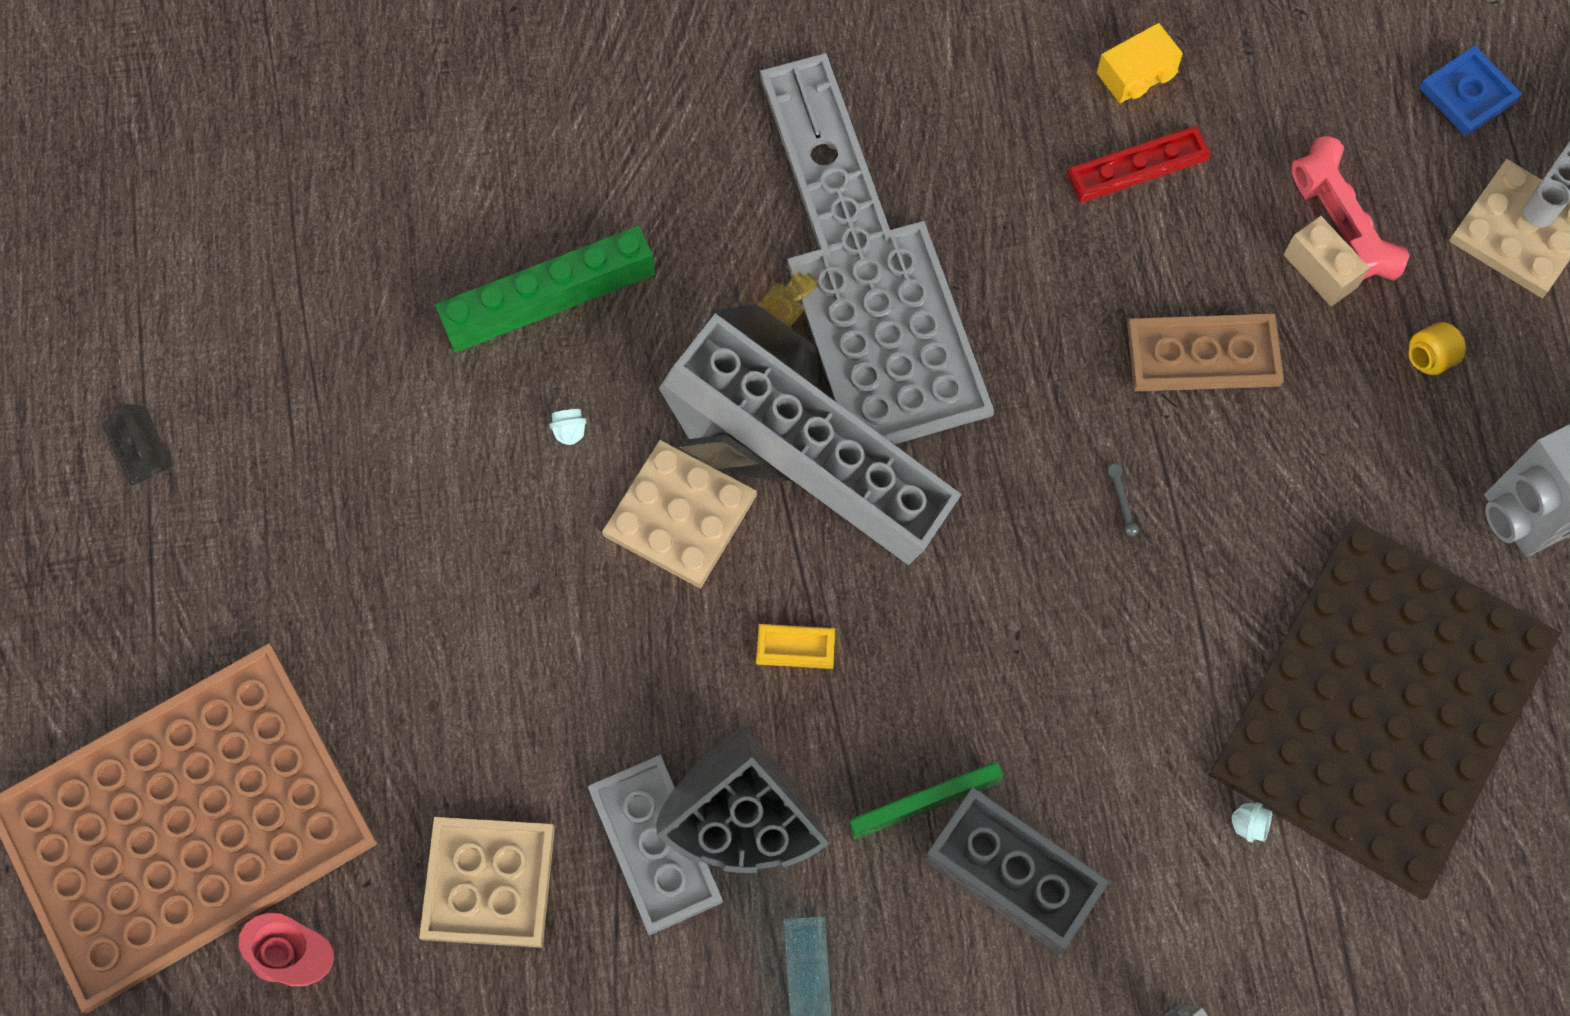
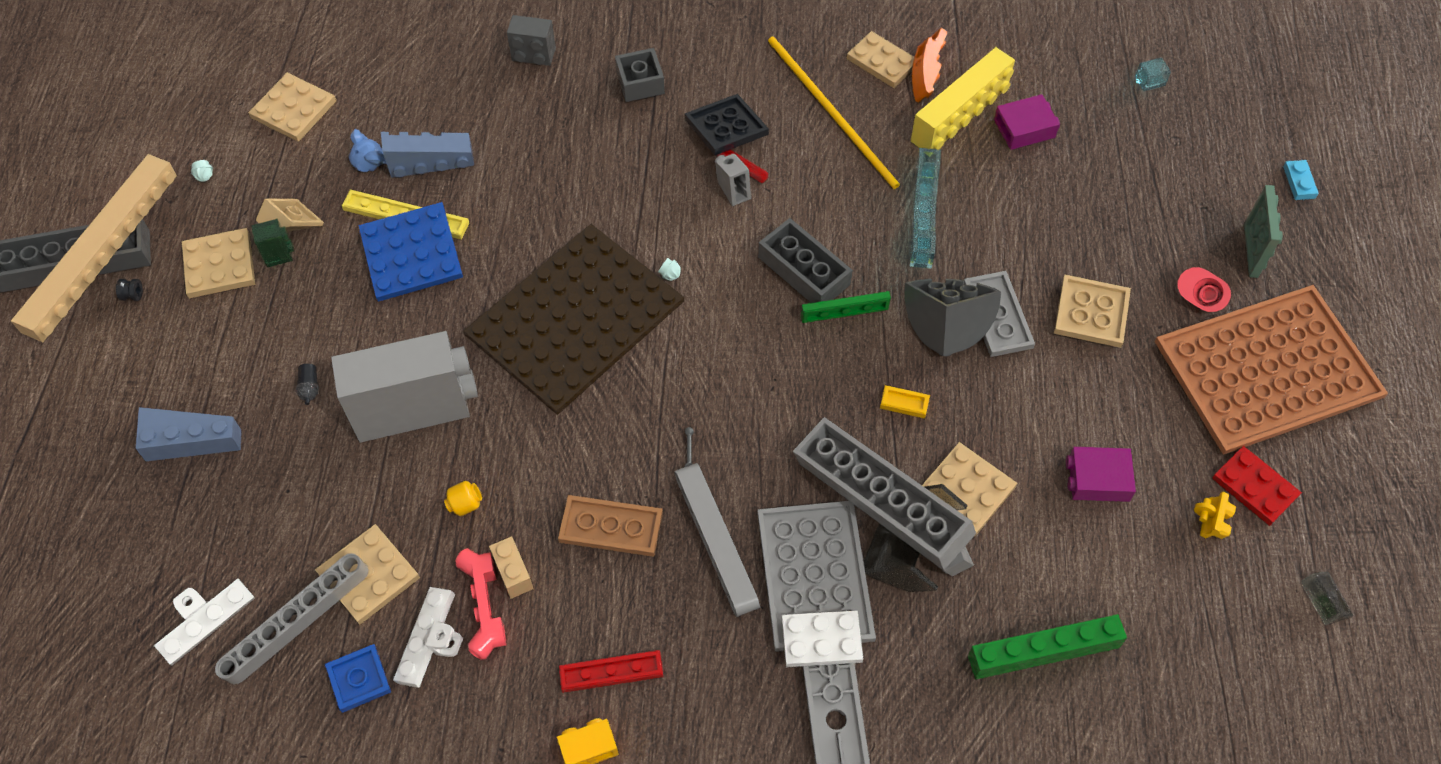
camera: 170 degrees left, 10 degrees down
(224, 602) = (1256, 485): none -> red plate
(296, 533) = (1212, 514): none -> yellow hips
(471, 567) = (1101, 474): none -> magenta brick
(568, 426) = (1036, 553): light aqua plate -> none
(784, 300) = (883, 604): clear yellow plate -> none
(862, 239) = (822, 638): none -> white plate
(1046, 363) = (717, 540): none -> light grey beam
(1401, 154) = (428, 636): none -> white plate

